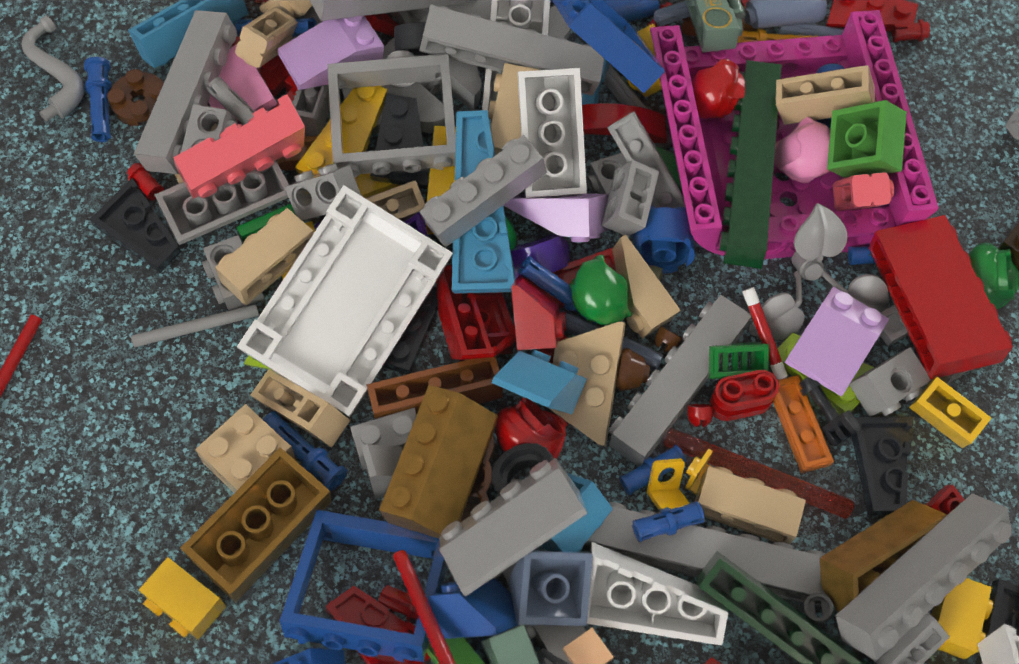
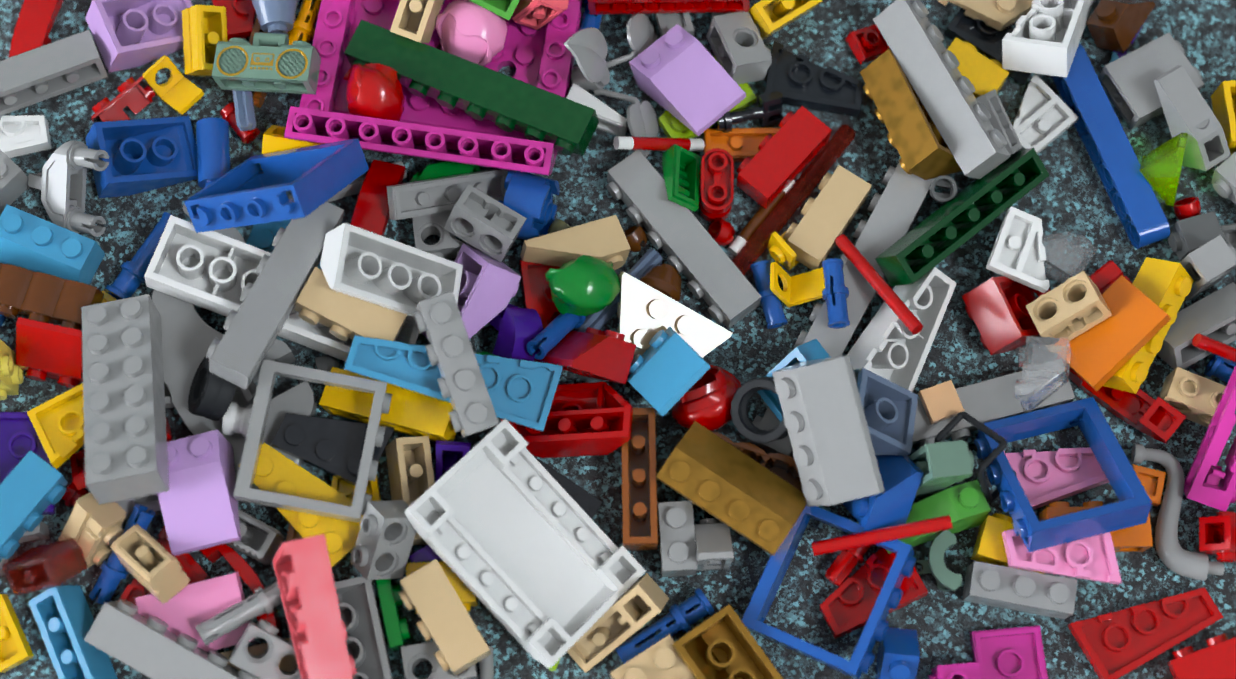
camera: 75 degrees left, 10 degrees up
(688, 559) = (879, 284): none -> red bar
(733, 447) = (754, 223): none -> reddish brown bar
(776, 269) = (608, 119): none -> white slope
(795, 446) = (782, 156): none -> red brick

